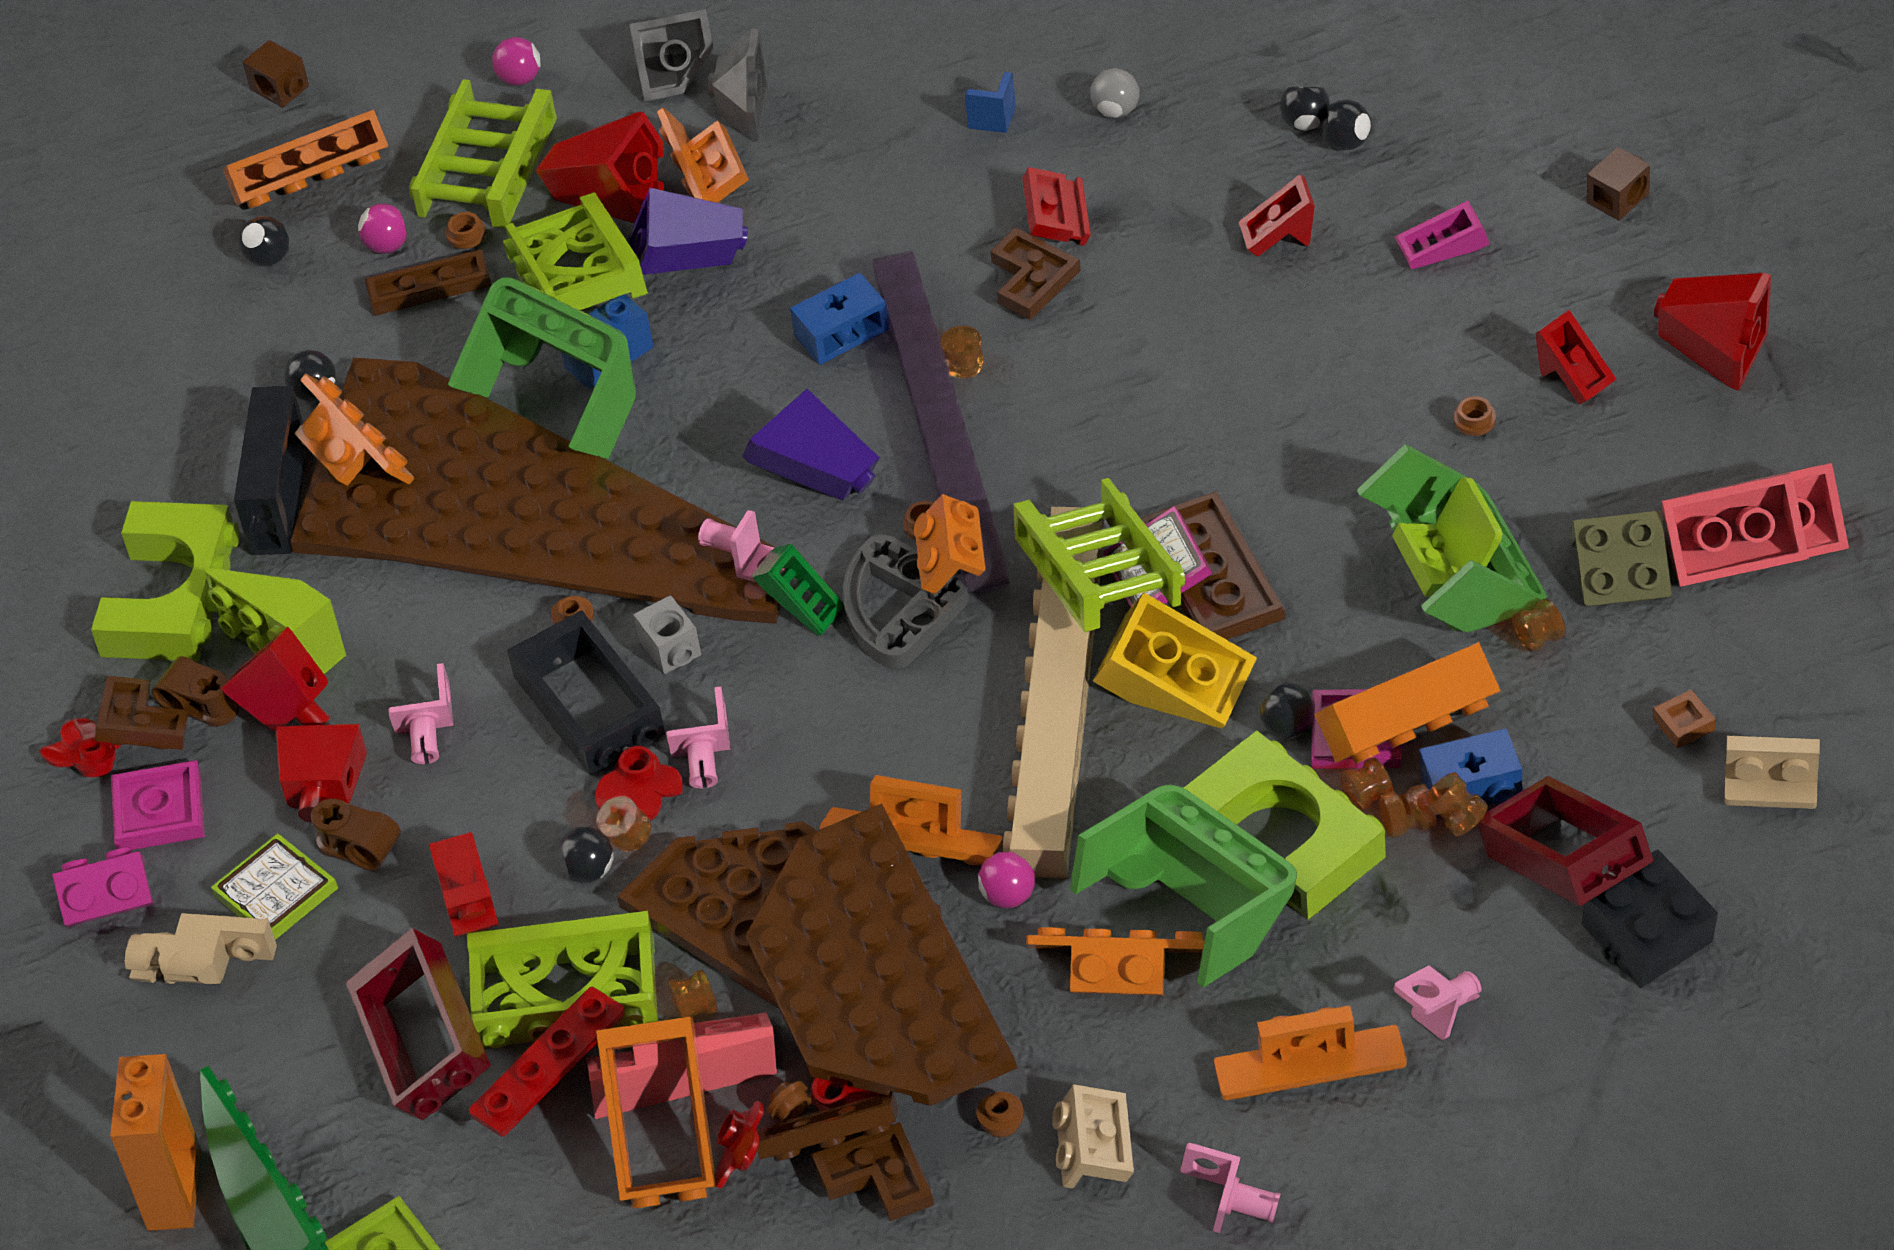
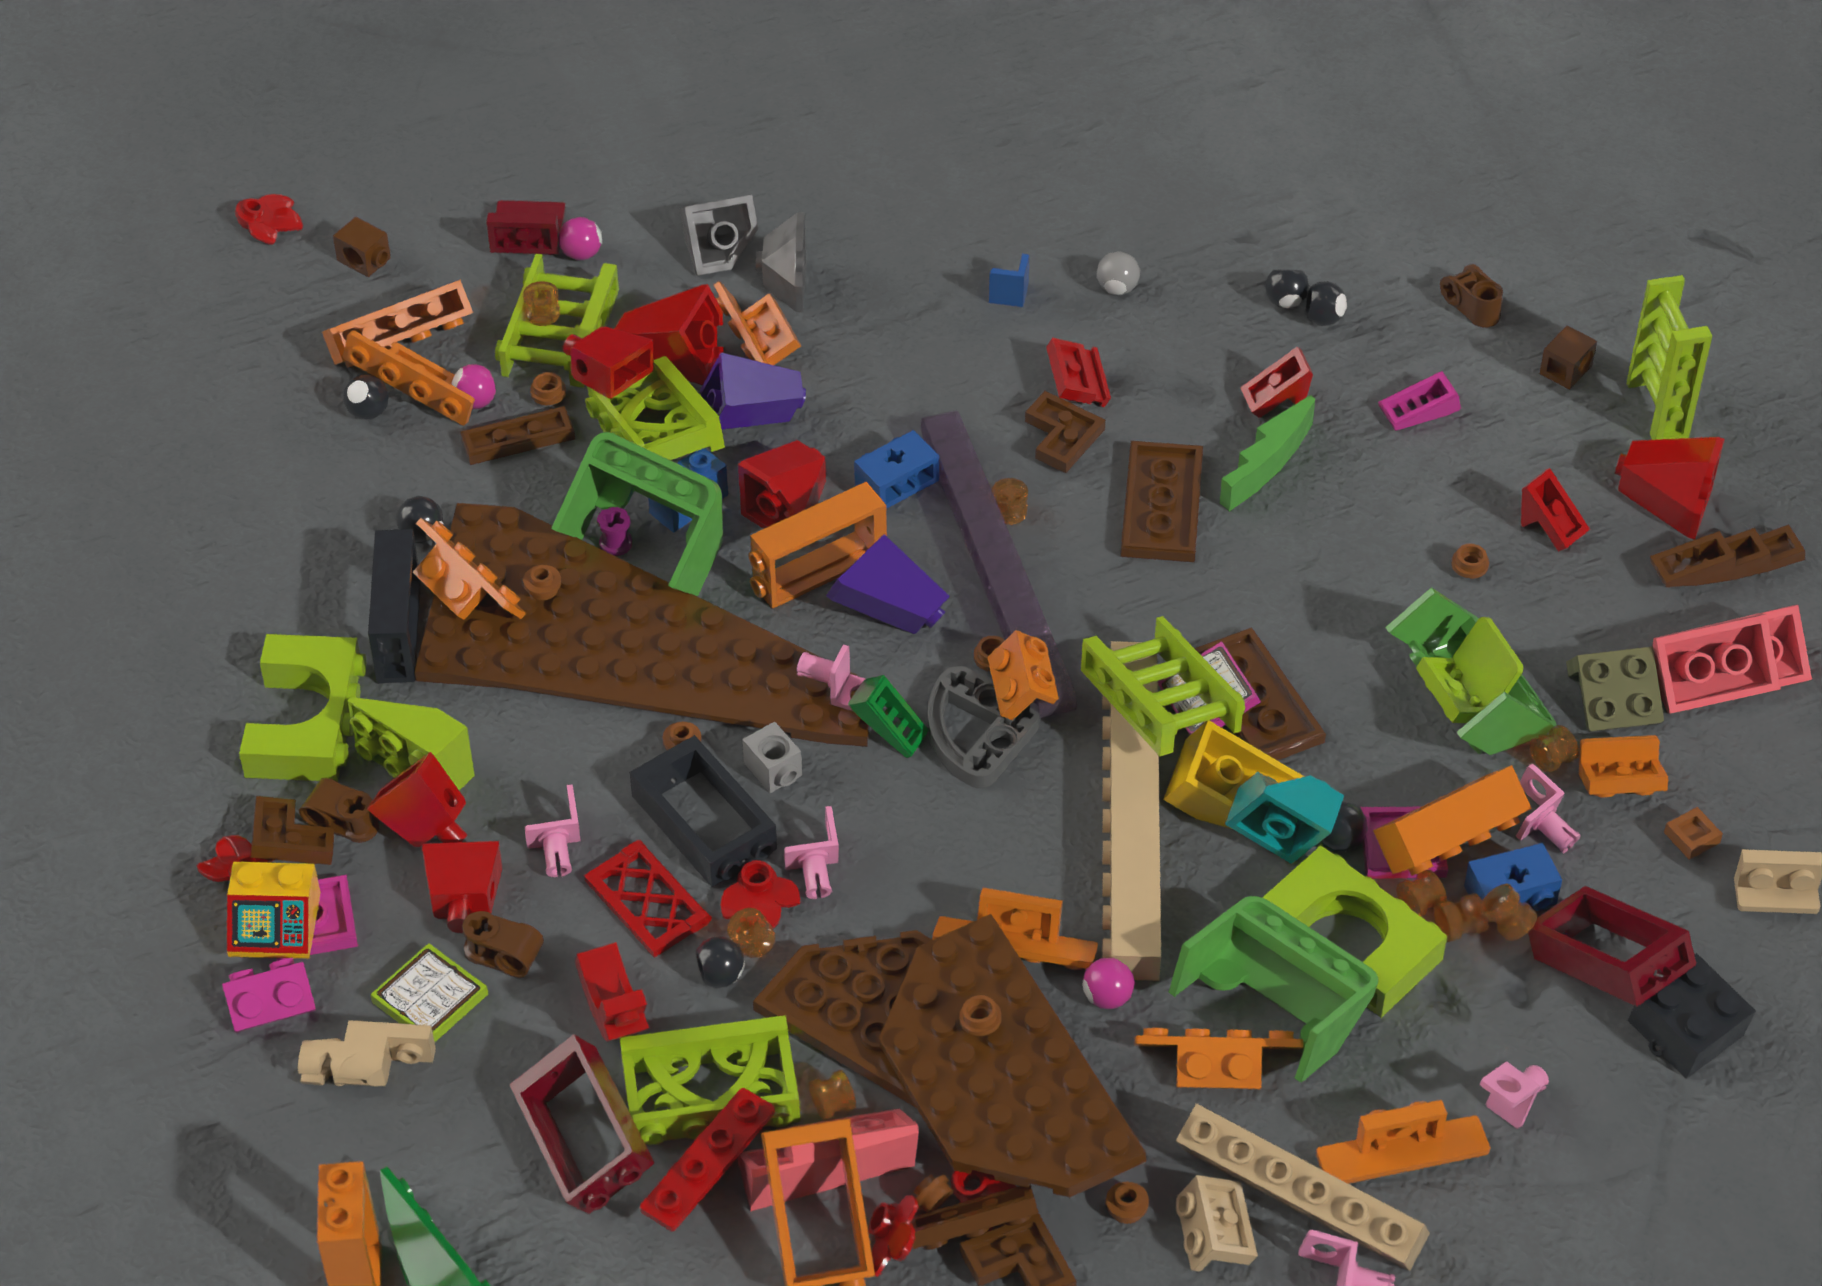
camera: 10 degrees left, 0 degrees up
(111, 796) = (272, 909): none -> slope
(177, 40) = (268, 216): none -> red plate
(313, 215) = (411, 375): none -> orange bracket
(434, 443) = (542, 582): none -> dark orange plate
(457, 48) = (525, 227): none -> dark red bracket
(463, 135) = (541, 303): none -> clear orange wheel
(520, 381) = (614, 528): none -> magenta bush
(530, 197) = (609, 359): none -> red torso
(545, 819) = (676, 929): none -> red window
(710, 339) = (781, 483): none -> red slope
(725, 380) = (825, 564): none -> orange window
(851, 911) = (978, 1007): none -> dark orange plate
(1135, 351) = (1162, 501): none -> reddish brown tile
(1191, 1099) = (1303, 1187): none -> tan brick
(1219, 695) = (1285, 815): none -> teal slope
(1268, 288) = (1273, 447): none -> bright green slope
(1518, 699) = (1544, 817): none -> bright pink bracket
(1520, 114) = (1474, 295): none -> reddish brown piece
(1612, 644) = (1621, 766): none -> orange bracket
(1719, 183) = (1668, 358): none -> lime fence
(1777, 411) = (1727, 559): none -> reddish brown slope

